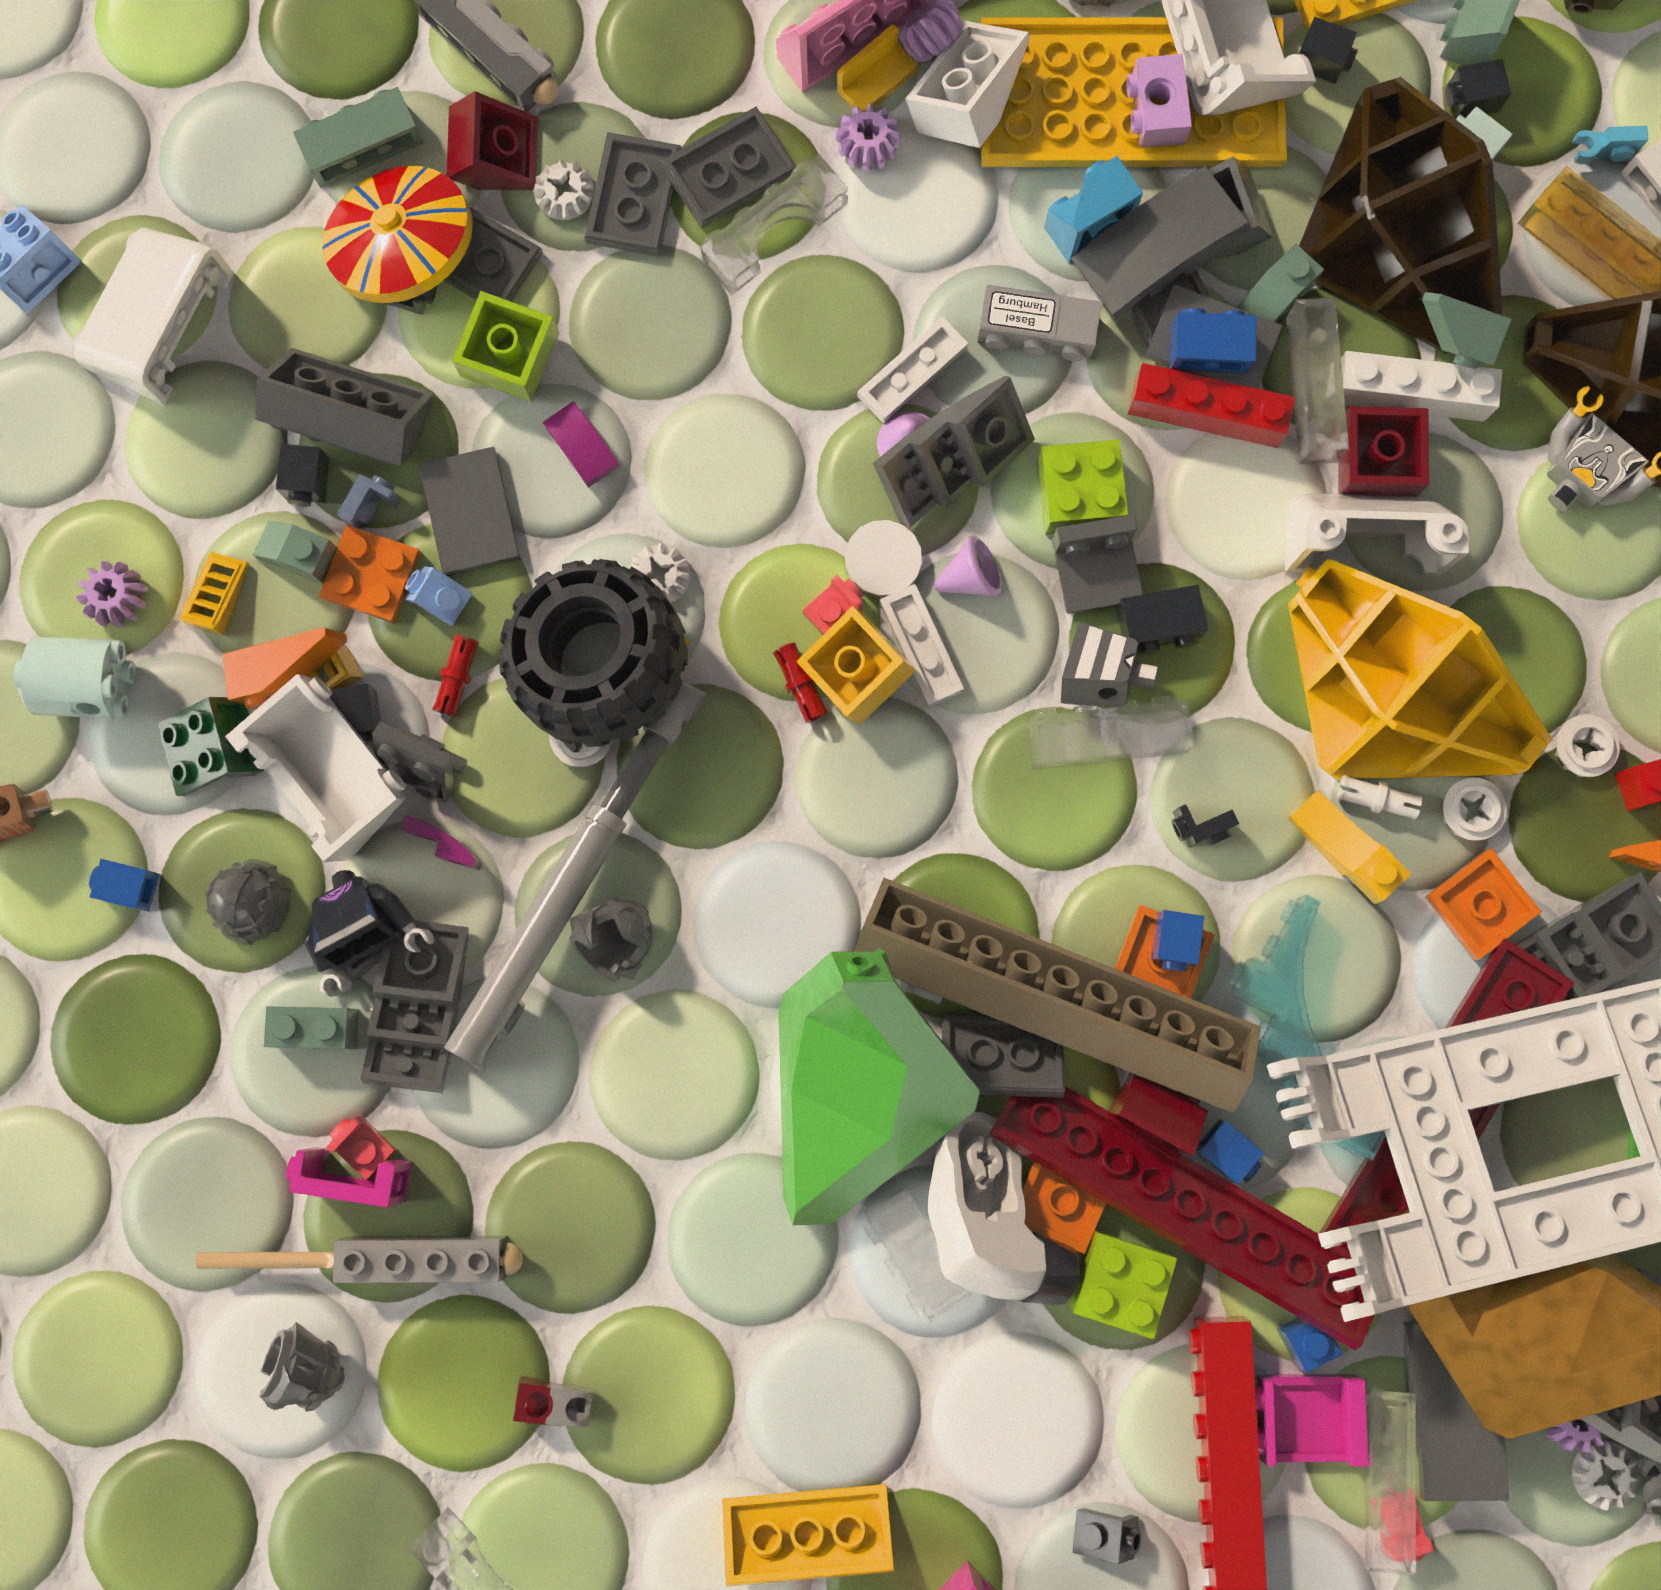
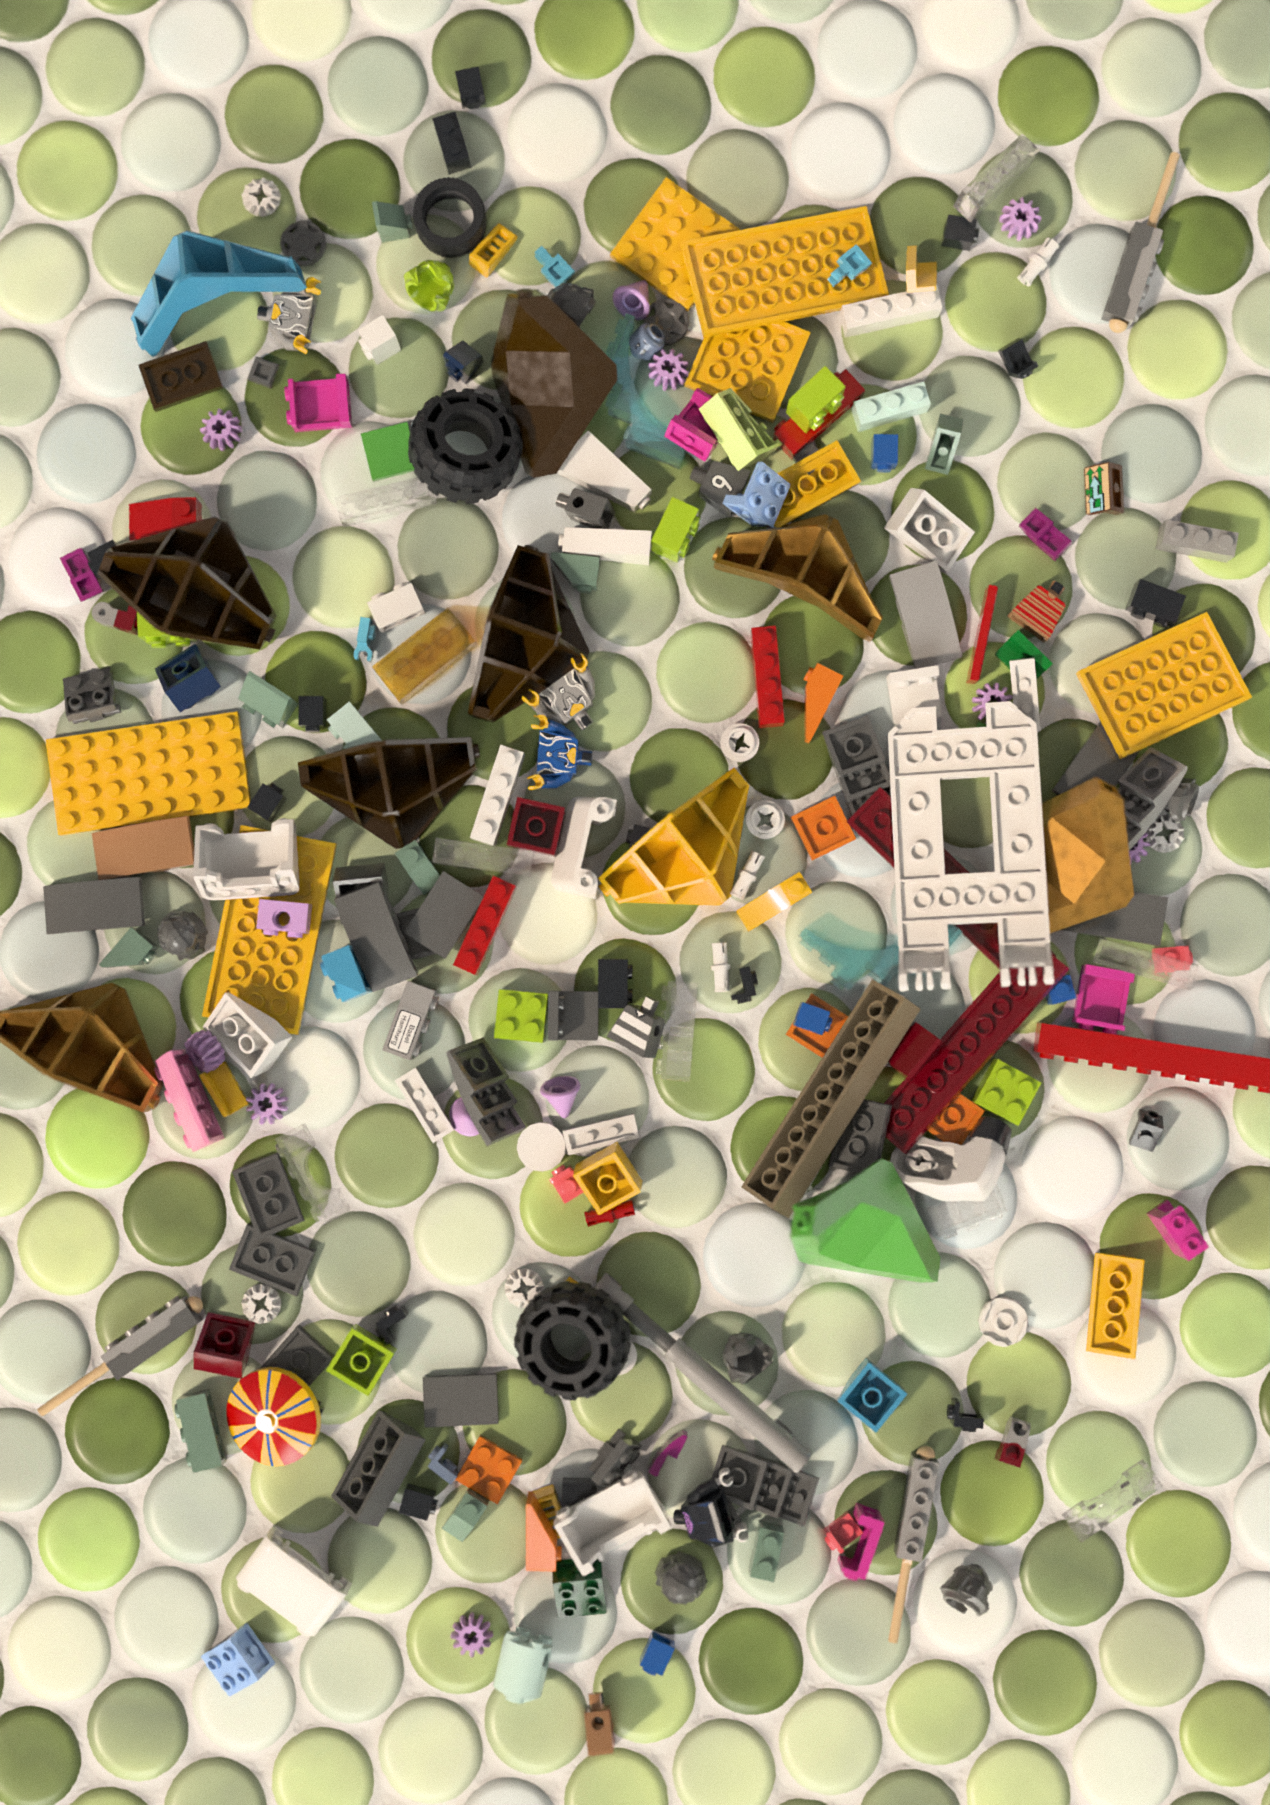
camera: 75 degrees left, 5 degrees up
(197, 600) = (486, 1561): yellow slope -> none
(437, 594) = (511, 1429): light blue bracket -> none
(455, 676) = (564, 1426): red pin -> none
(572, 1319) = (967, 1421): none -> black bracket
(580, 382) = (391, 1317): none -> black bracket
(581, 444) = (431, 1322): magenta slope -> none
(588, 1150) = (871, 1395): none -> dark azure slope
(745, 1349) = (1003, 1321): none -> white tile
(1213, 341) = (448, 918): blue brick -> none
(1224, 782) = (720, 967): none -> white pin
(1230, 1152) = (942, 1011): blue brick -> none
(1466, 330) = (474, 764): sand green slope -> none
(1502, 464) = (557, 755): none -> blue torso

